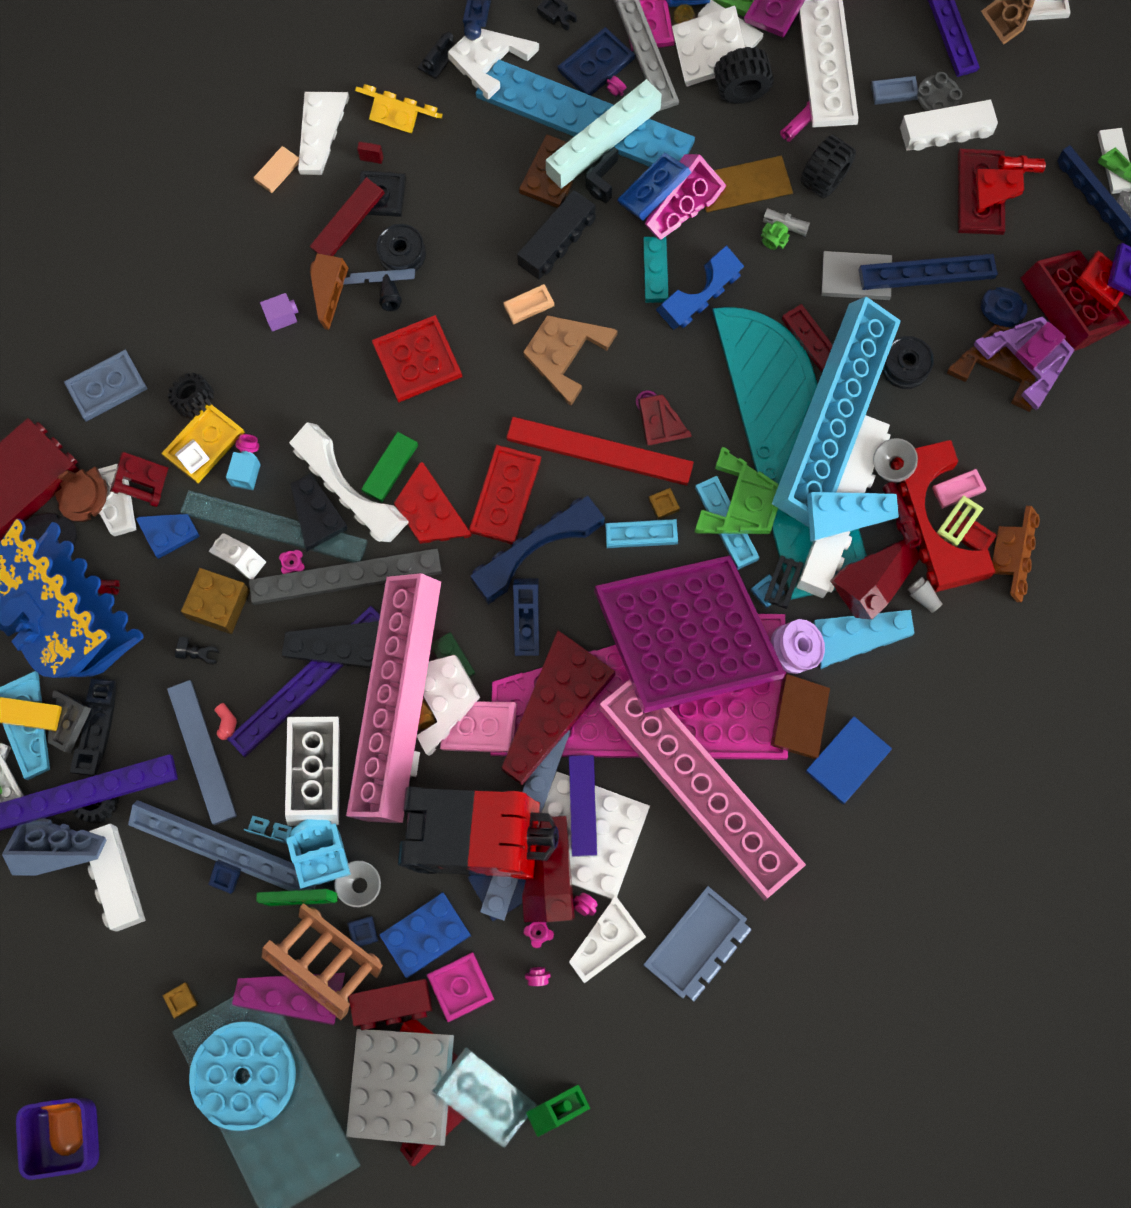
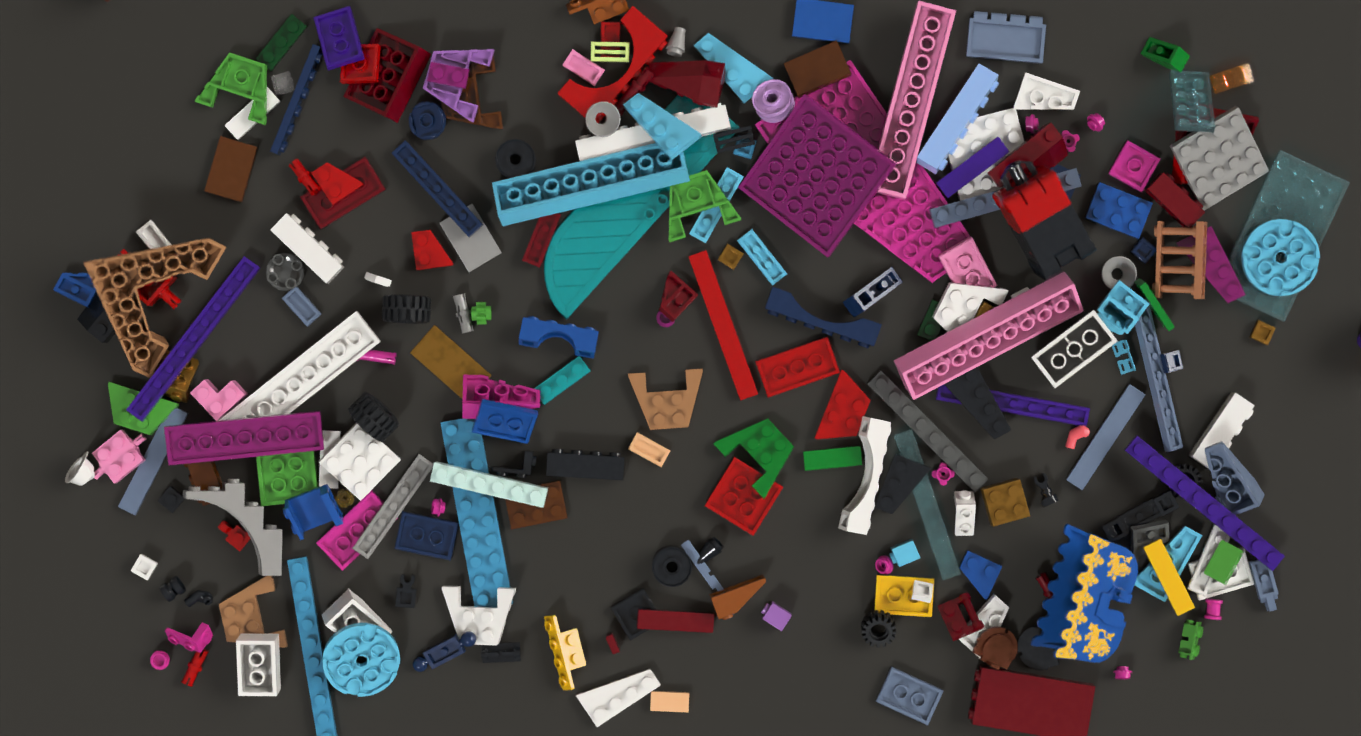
camera: 130 degrees left, 15 degrees up
(448, 410) = (765, 445): none -> green wing
(478, 1169) = (1231, 78): none -> clear orange slope
(561, 695) = (910, 230): dark red wing -> none
(646, 825) = (957, 118): none -> light blue brick
(870, 230) = (429, 251): none -> red wing
(874, 168) = (377, 279): none -> white tile
(1073, 110) = (231, 169): none -> reddish brown tile

